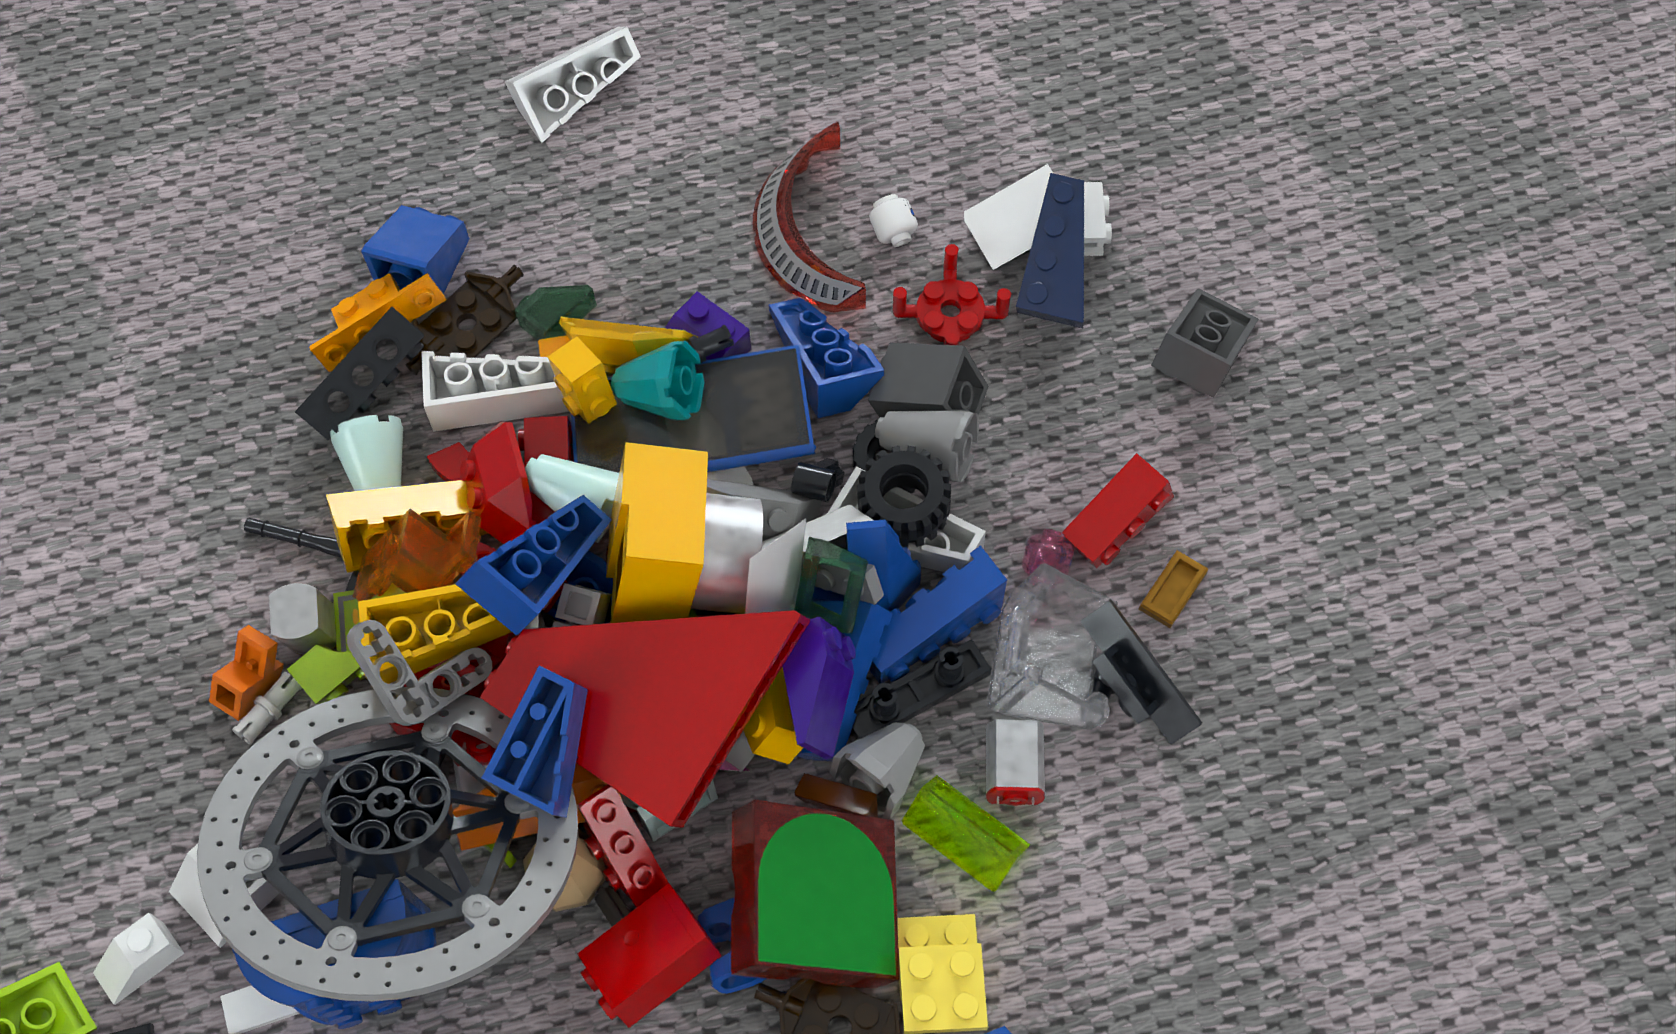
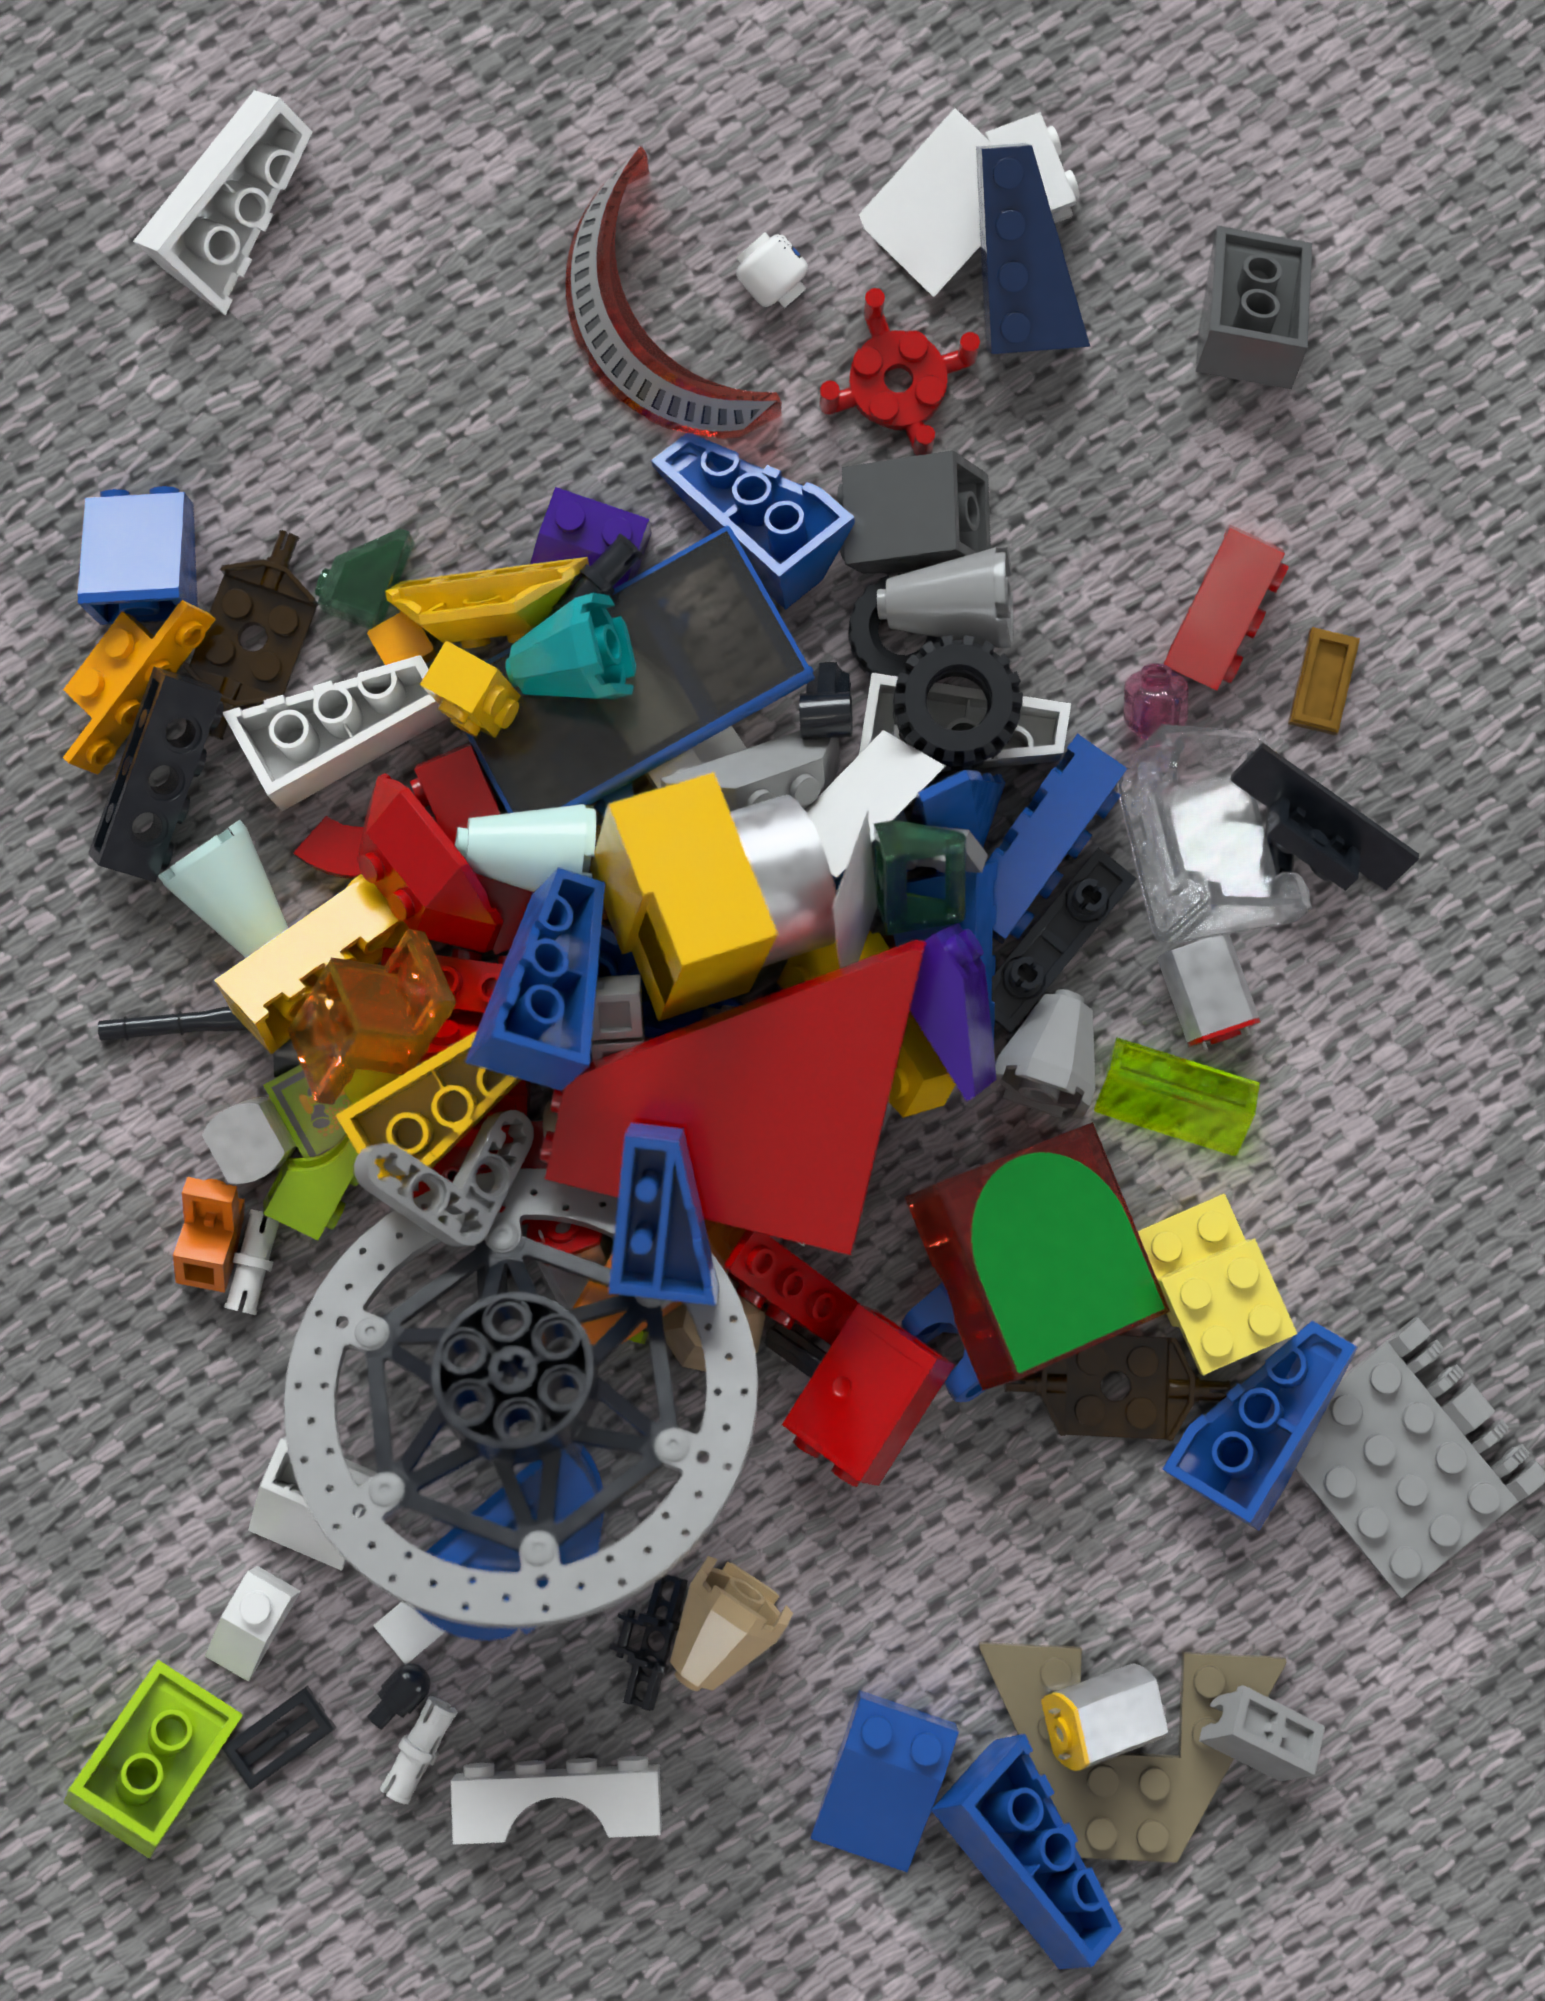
camera: 20 degrees left, 20 degrees up
(836, 796) = (1012, 1118): reddish brown slope -> none

